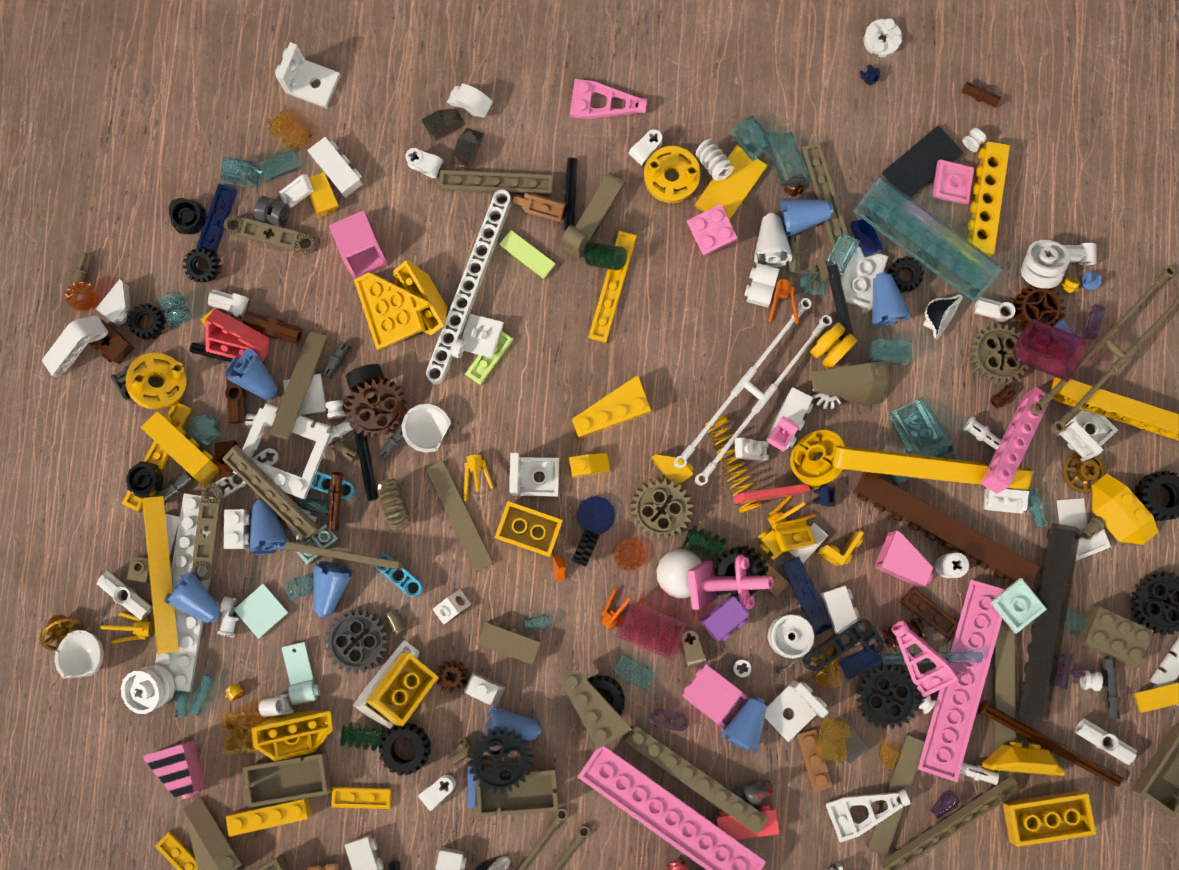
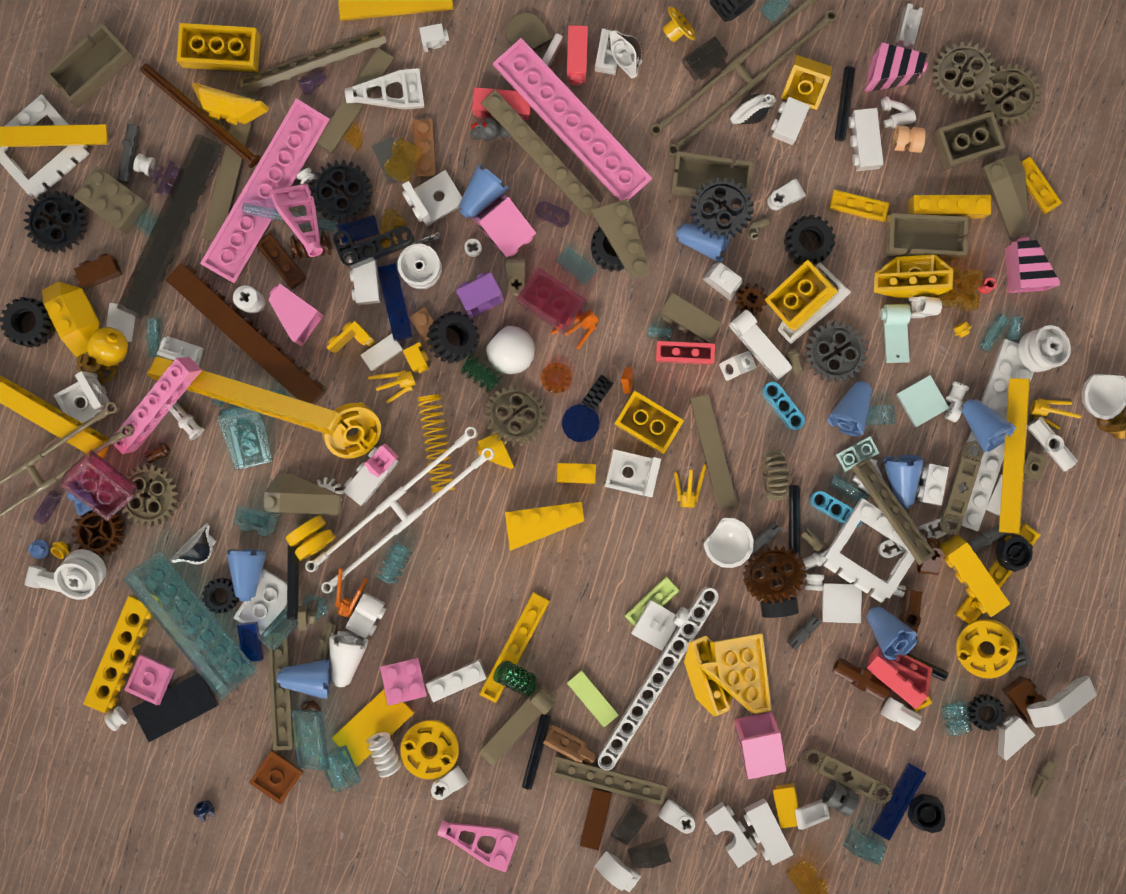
camera: 170 degrees left, 5 degrees up
(81, 287) = (1047, 760): clear orange gear -> none
(192, 270) = (909, 758): black tyre -> none
(204, 429) = (946, 590): clear light blue brick -> none
(212, 741) = (990, 285): none -> coral pin
(279, 165) = (824, 846): clear light blue tile -> none
(298, 385) = (846, 613): dark tan tile -> none
(335, 501) = (830, 496): reddish brown pin -> none
(344, 555) = (832, 434): dark tan tile -> none
(361, 736) = (848, 260): clear green piece -> none
(381, 169) = (740, 848): none -> white arch
(434, 631) = (759, 345): none -> white beam
(472, 797) = (755, 179): medium blue tile -> none
(500, 144) = (595, 819): none -> reddish brown tile
(507, 606) = (684, 353): none -> coral brick
(656, 245) = (456, 680): none -> white arch
(704, 583) = (491, 329): bright pink piece -> none
(745, 340) = (394, 563): none -> clear light blue piece
(751, 449) = (415, 452): white plate -> none
(772, 493) = (413, 405): coral tile -> none
(793, 535) = (394, 361): yellow plate -> none
(810, 119) = (276, 777): none -> dark orange plate
(827, 496) = (352, 392): dark blue tile -> none
(890, 30) = (189, 839): white plate -> none
(980, 94) = (97, 765): reddish brown pin -> none
(991, 776) = (263, 96): white pin -> none
(993, 309) = (143, 542): white piece -> none
(1018, 605) = (195, 247): light aqua tile -> none
(1078, 488) = (107, 346): none -> yellow cylinder
(1096, 524) = (106, 305): dark tan pin -> none
(1096, 544) = (108, 292): white tile -> none
(1108, 562) = (97, 271): none -> reddish brown brick
(1115, 746) = (139, 99): white piece -> none

